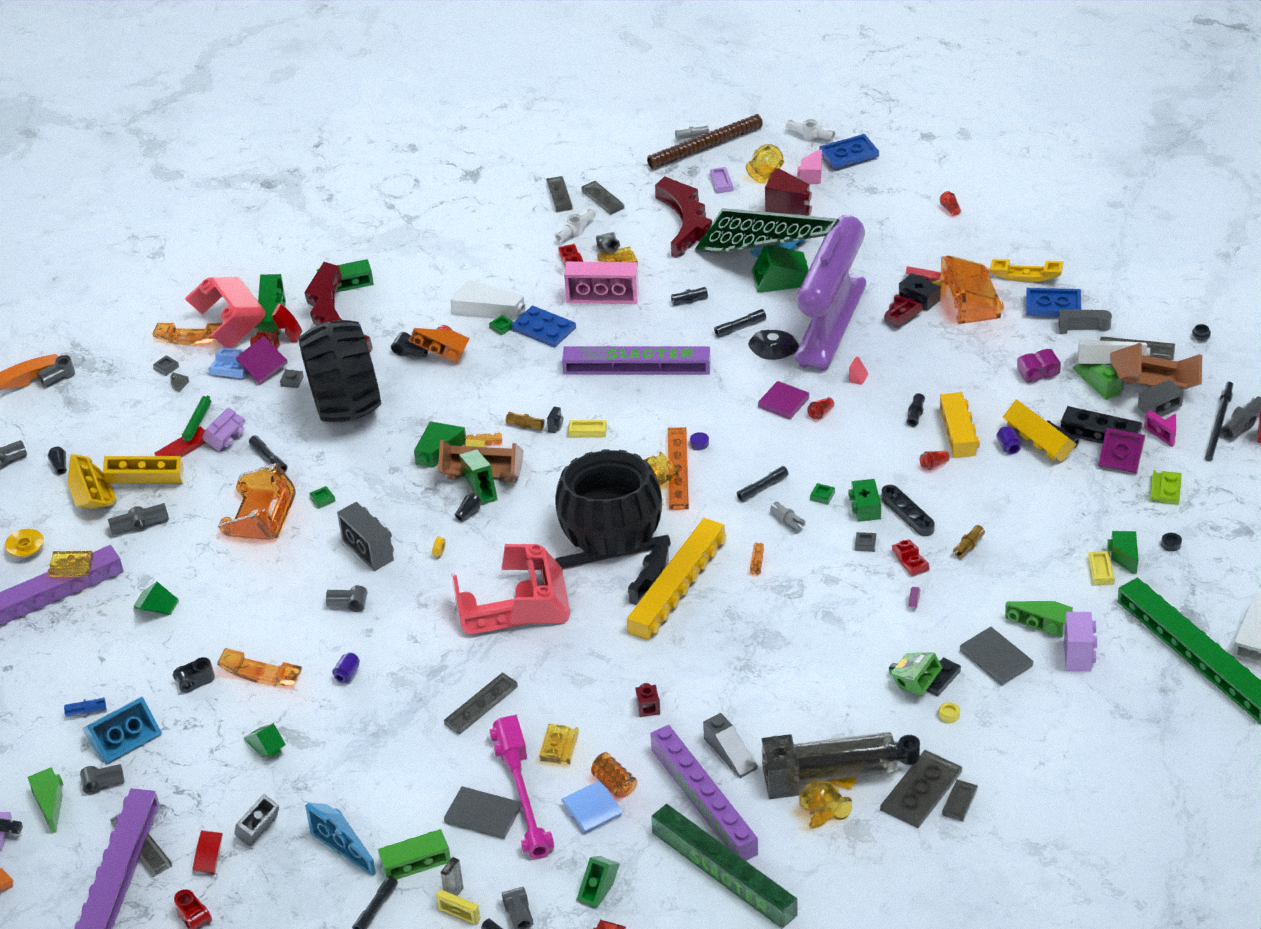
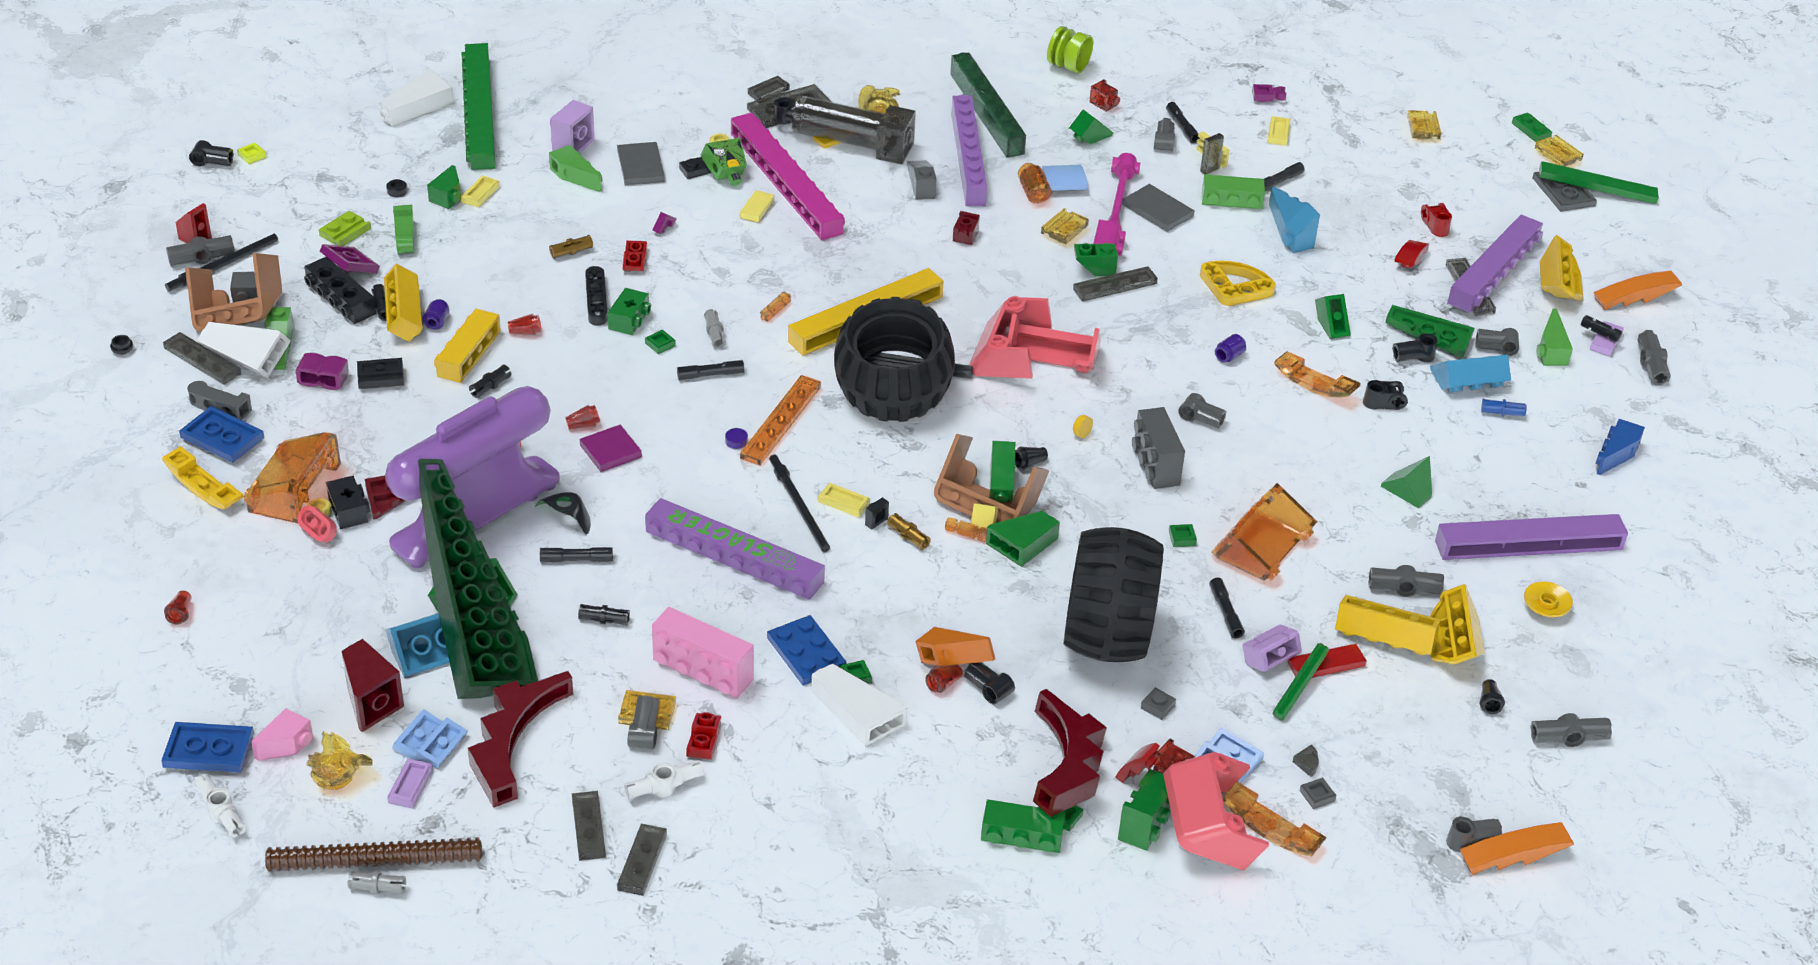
camera: 160 degrees left, 0 degrees up
(46, 873) = (1560, 271): none -> yellow wedge
(70, 563) = (1498, 523): clear yellow plate -> none
(162, 767) = (1450, 335): none -> green wing
(170, 736) = (1421, 349): none -> black piece
(256, 820) = (1362, 251): dark grey brick -> none
(261, 360) = (1190, 727): magenta tile -> none
(347, 752) = (1231, 294): none -> yellow beam
(508, 704) = (1097, 258): none -> green slope
(645, 427) = (783, 474): none -> black bar
(662, 467) = (806, 415): clear yellow plate -> none
(729, 199) = (429, 739): none -> light blue slope
(853, 652) = (757, 206): none -> light yellow tile
(854, 690) = (787, 176): none -> dark pink brick
(865, 541) = (661, 286): dark grey tile -> none
(998, 383) = (380, 373): none -> black plate
(1114, 499) = (404, 228): none -> bright green leg
(1162, 428) = (285, 268): dark pink slope -> none

